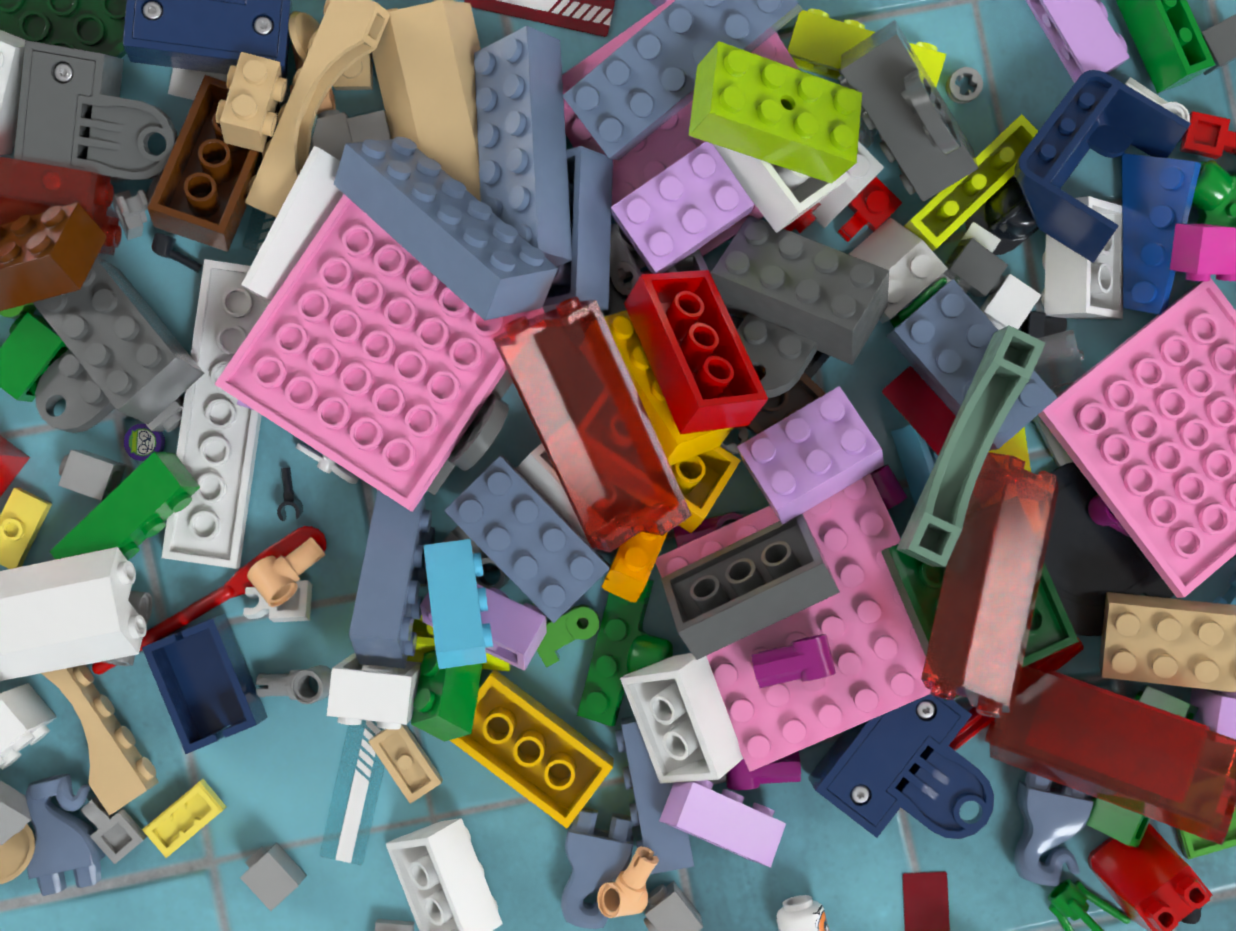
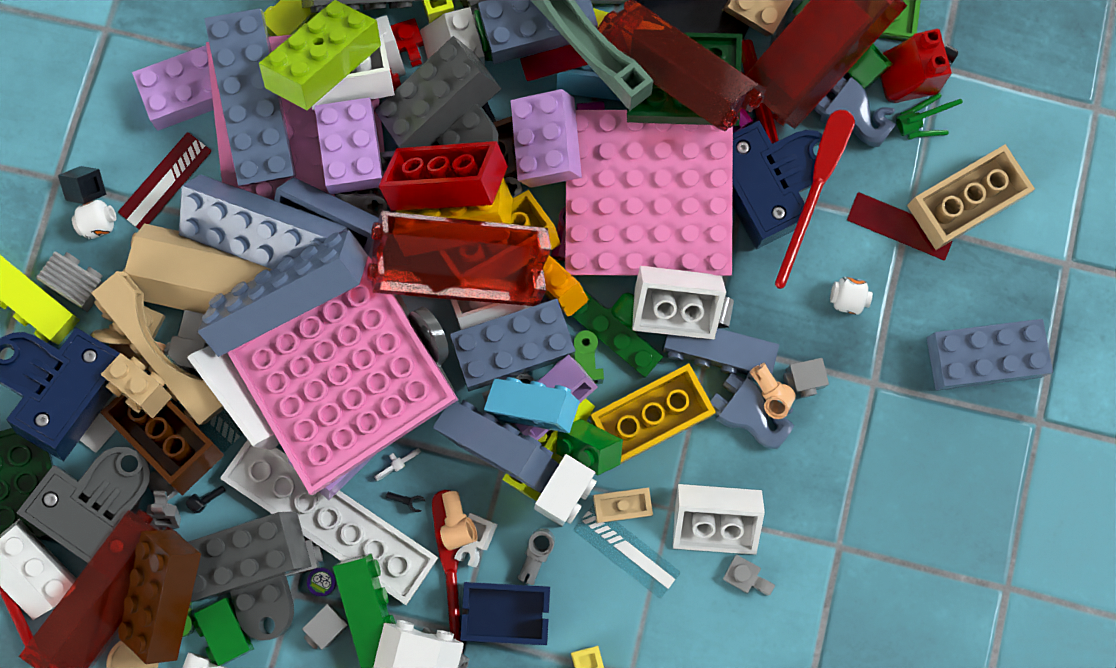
camera: 70 degrees left, 10 degrees down
(272, 875) = (658, 633): light grey brick -> none
(724, 820) = (757, 312): lavender brick -> none
(748, 586) = (610, 215): dark grey slope -> none
(780, 771) = (741, 262): magenta piece -> none
(804, 660) = (673, 205): magenta piece -> none
(975, 826) = (831, 147): none -> red piece

